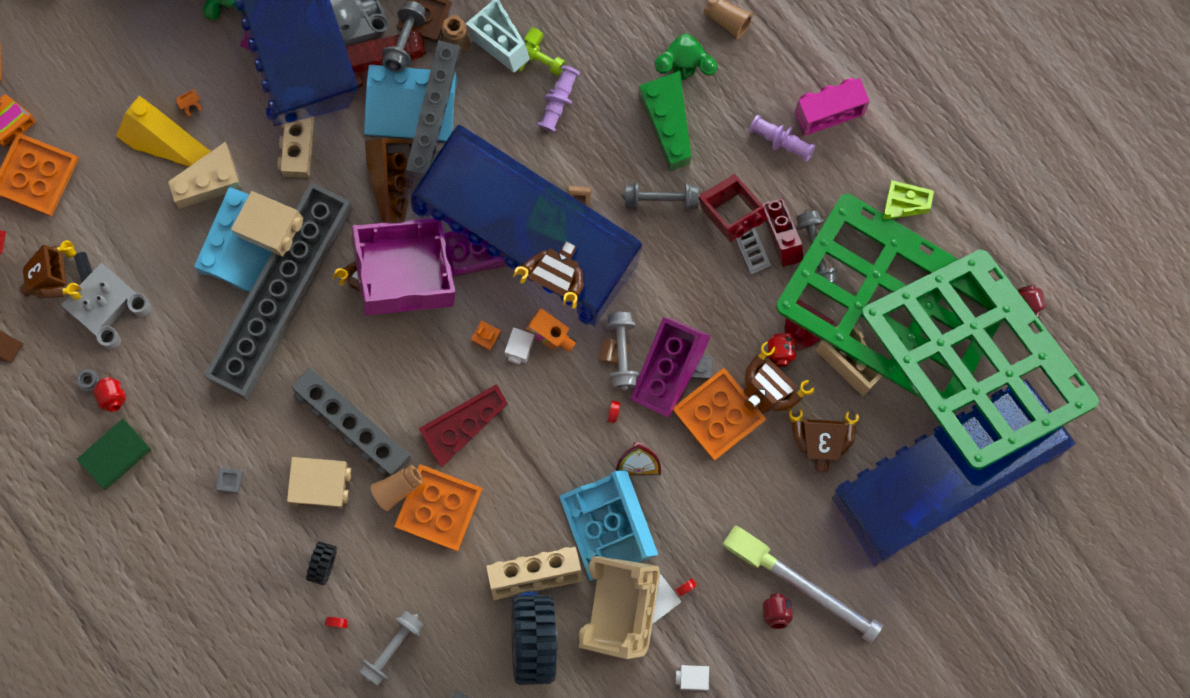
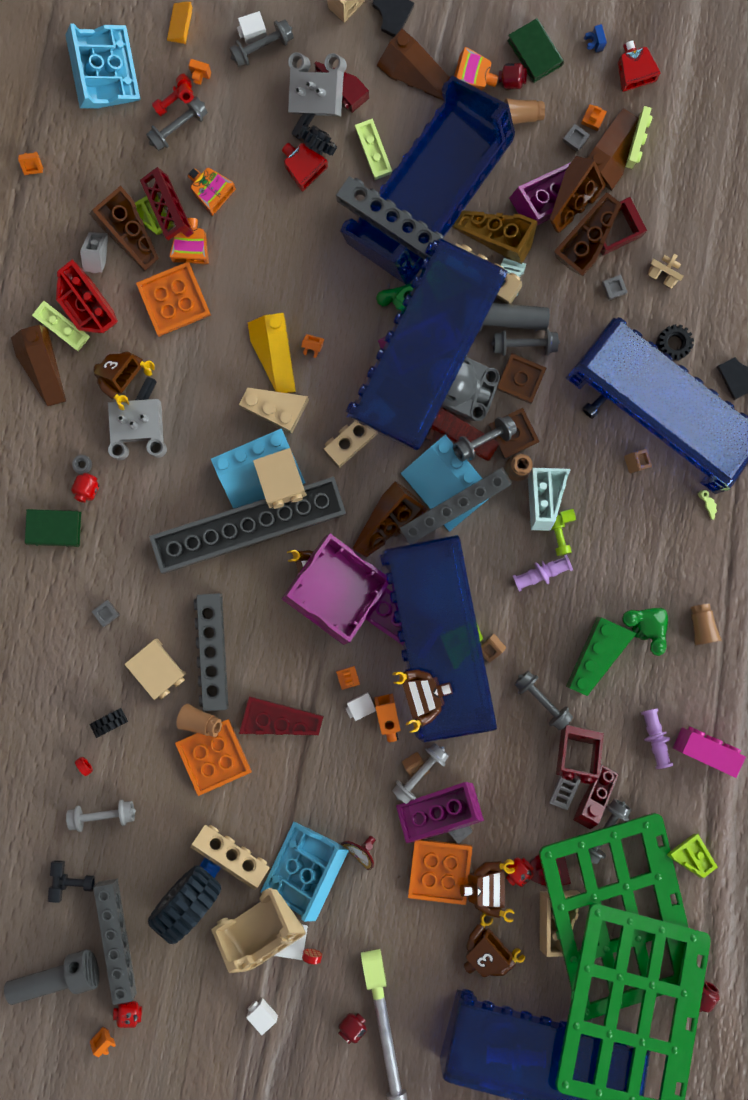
camera: 45 degrees right, 10 degrees up
(613, 411) = (377, 805): red tile -> none

